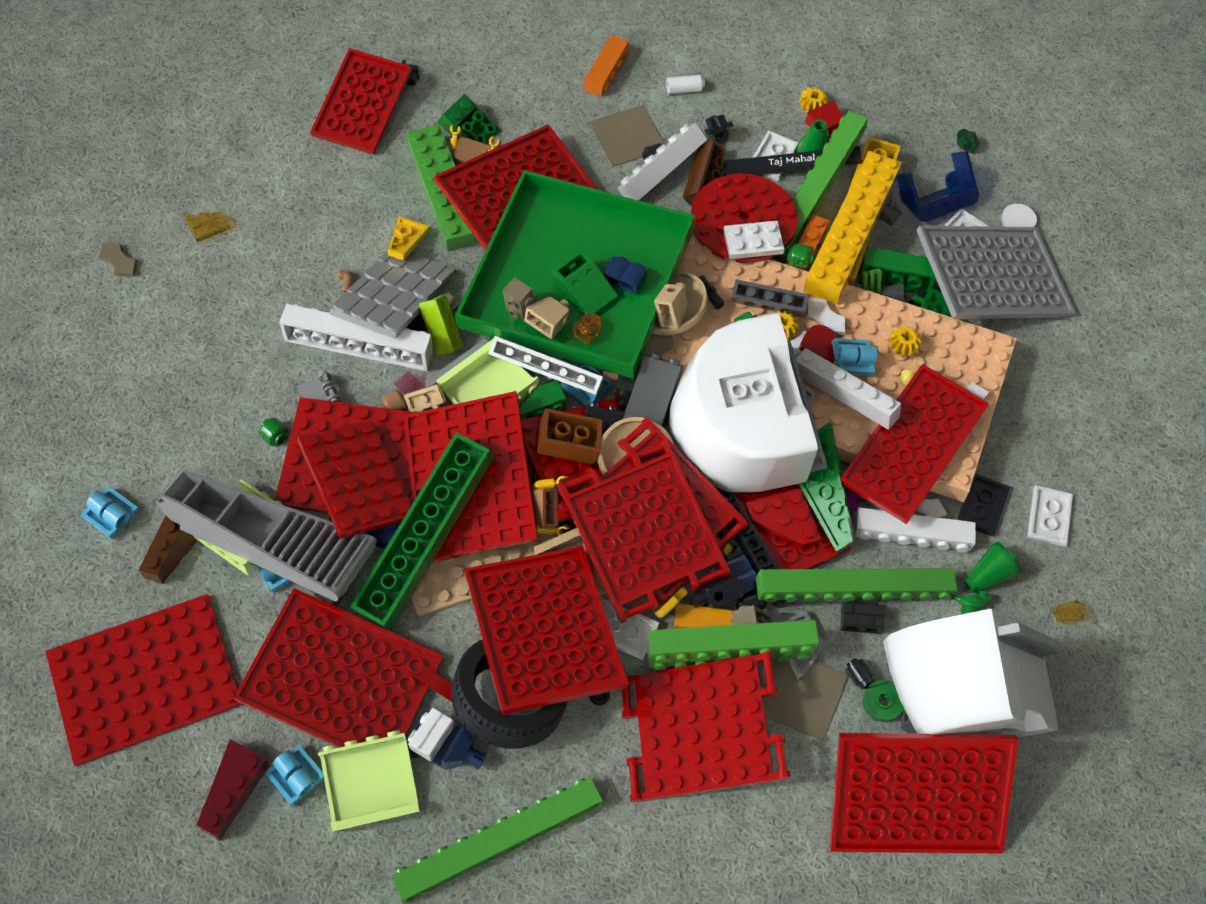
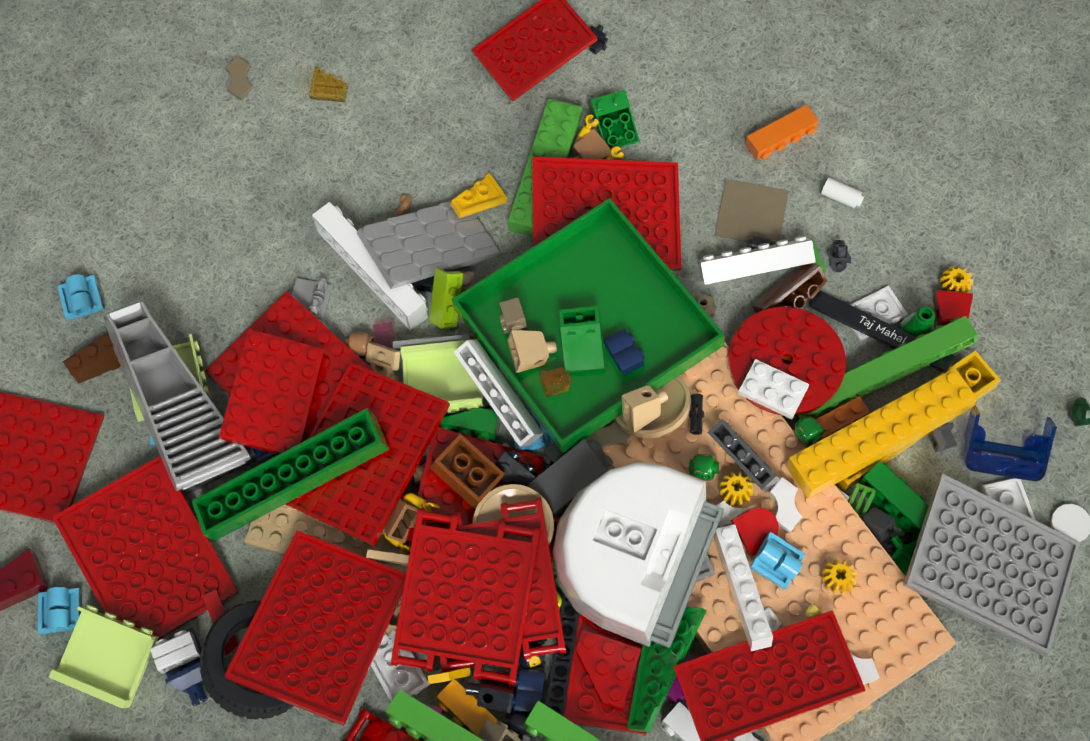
camera: 40 degrees right, 5 degrees up
(273, 432) = (248, 307): green head -> none

